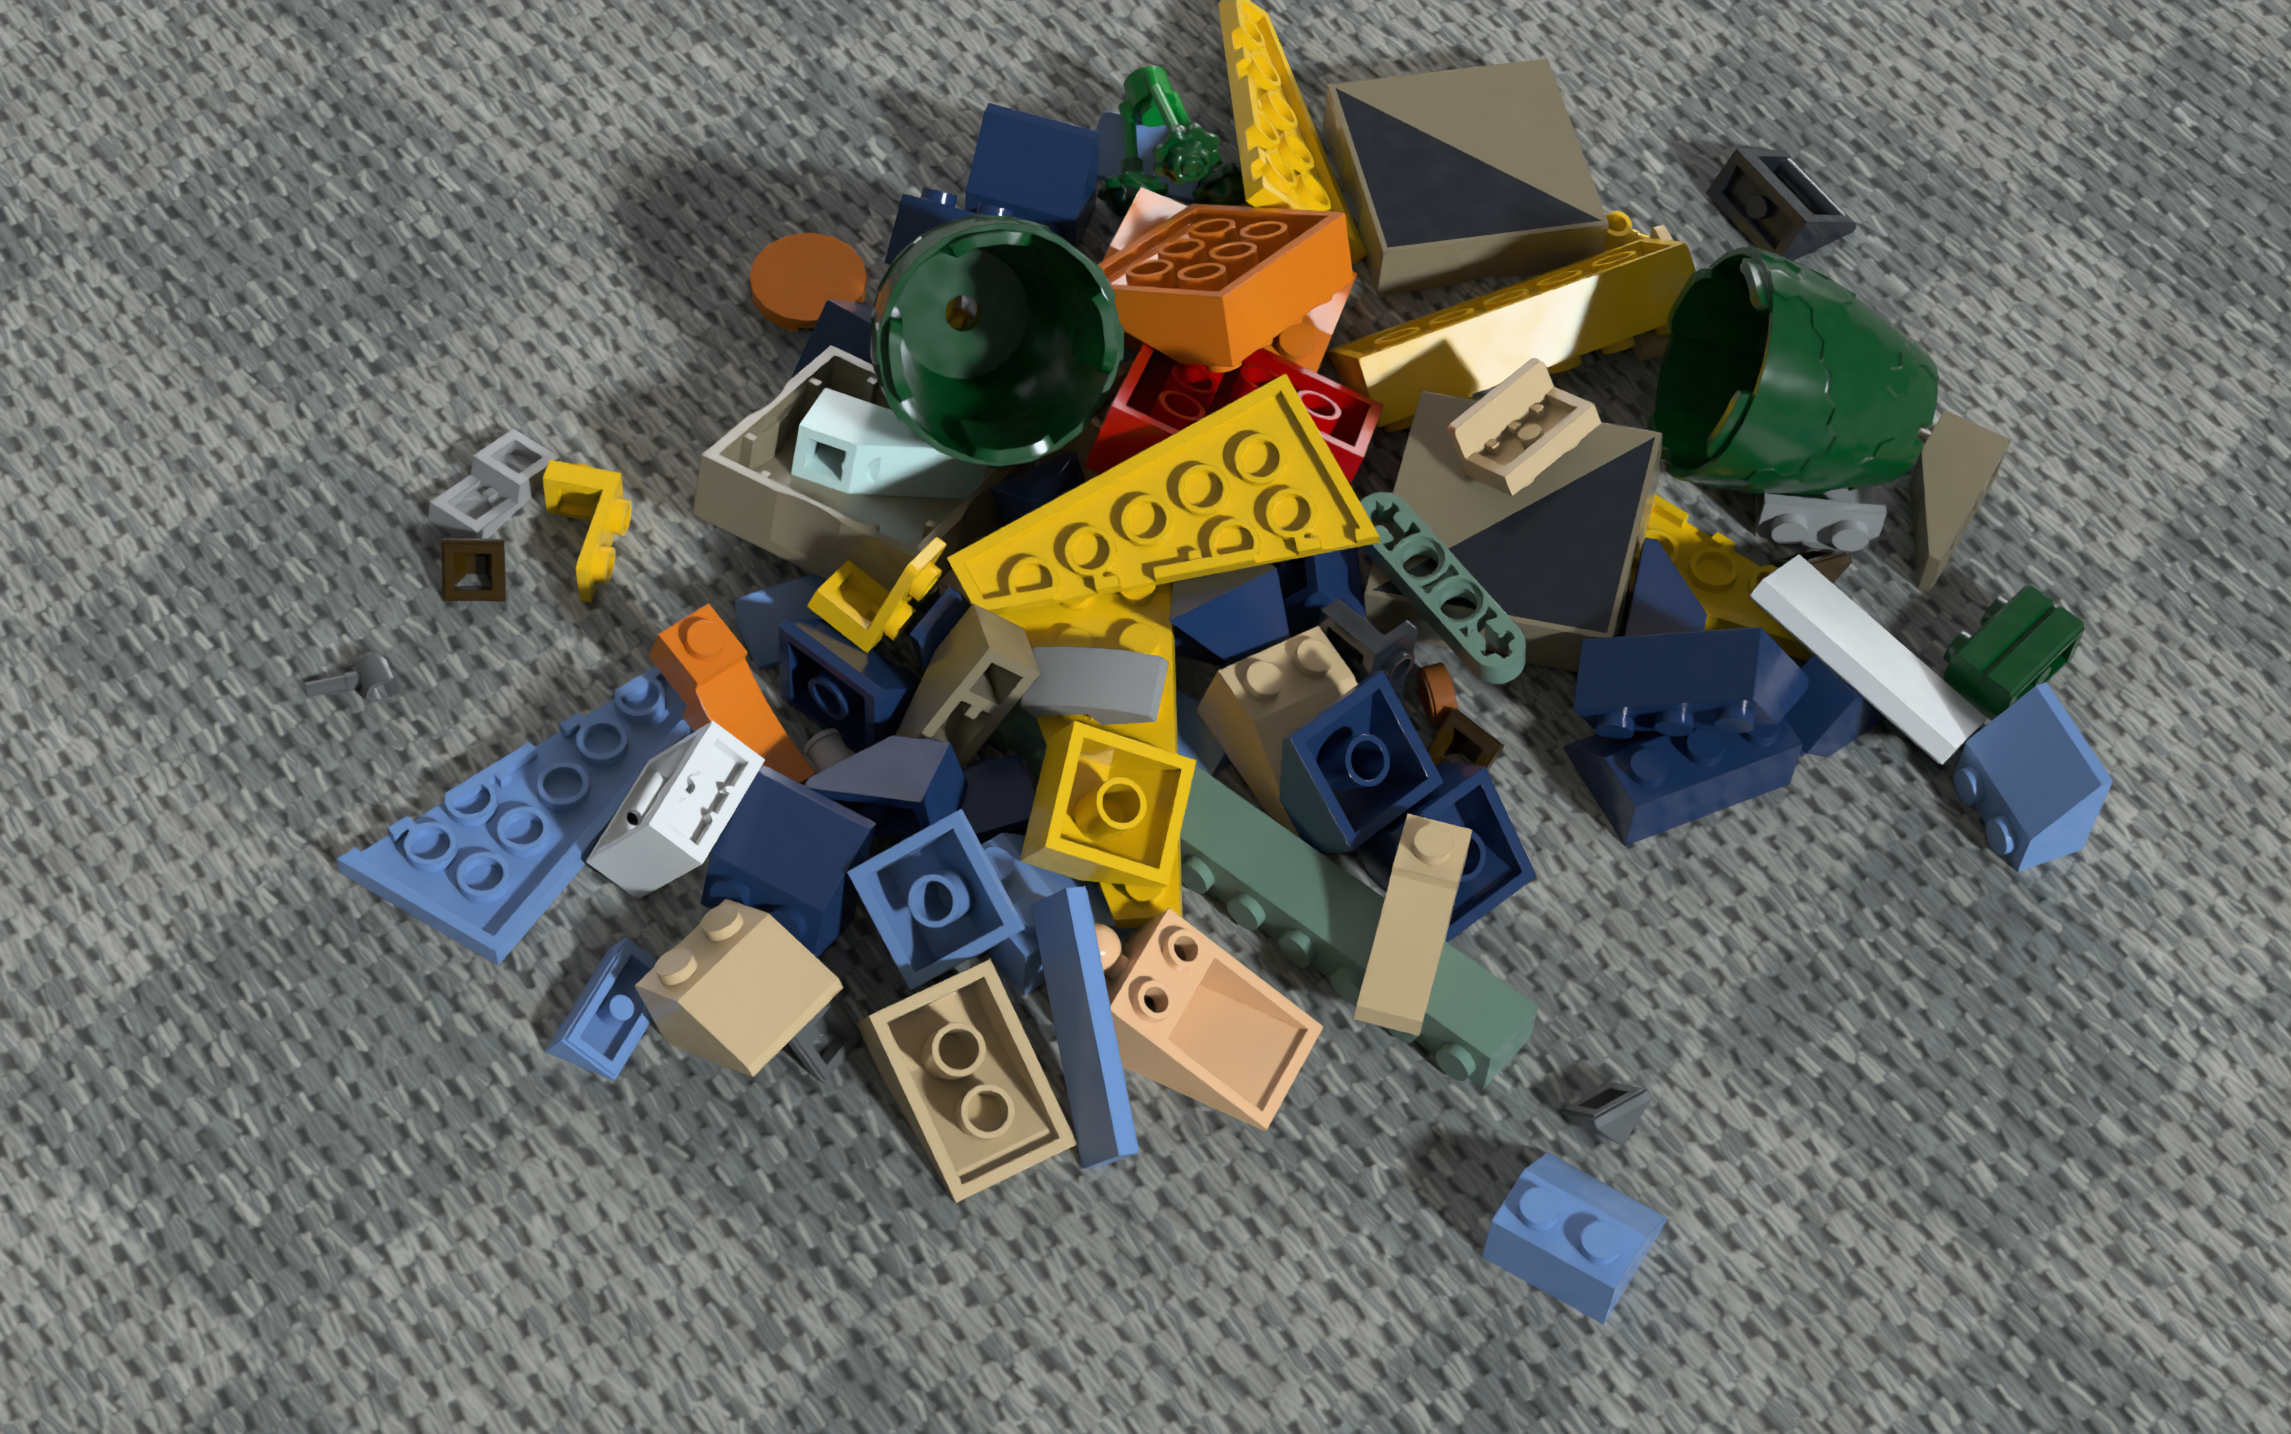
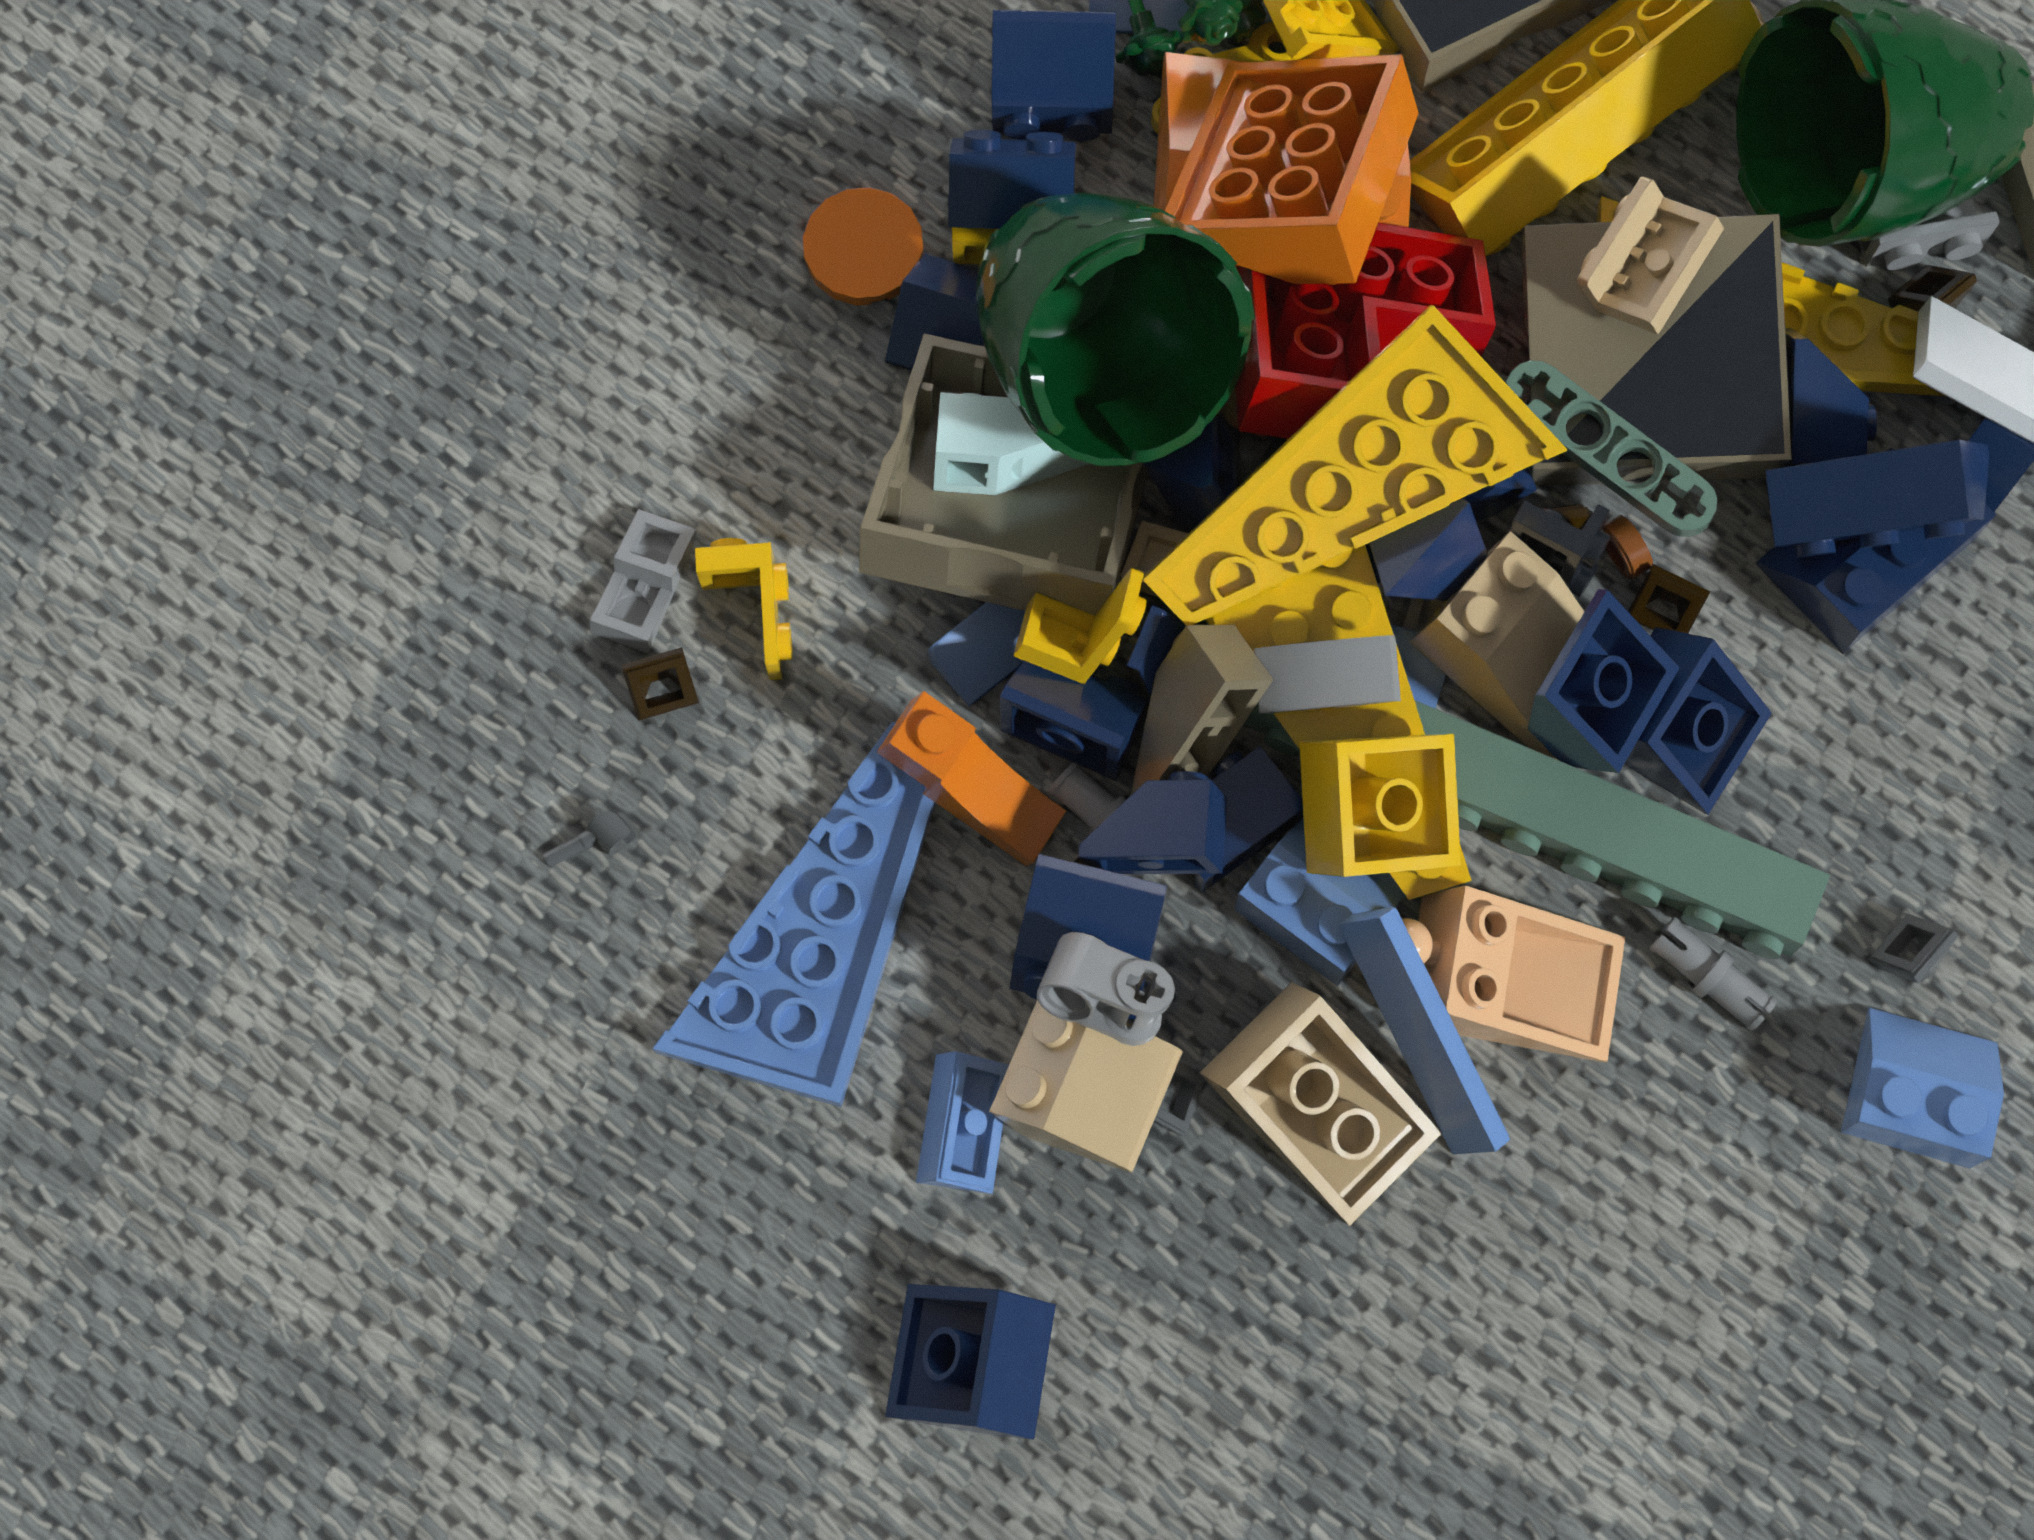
camera: 10 degrees left, 20 degrees up
(536, 1208) = (971, 1360): none -> dark blue slope
(680, 810) = (954, 940): white window -> none
(781, 886) = (1102, 988): none -> light grey piece
(936, 900) = (1244, 943): medium blue slope -> none
(1398, 1078) = (1713, 974): none -> light grey pin
(1413, 924) = (1698, 834): tan slope -> none

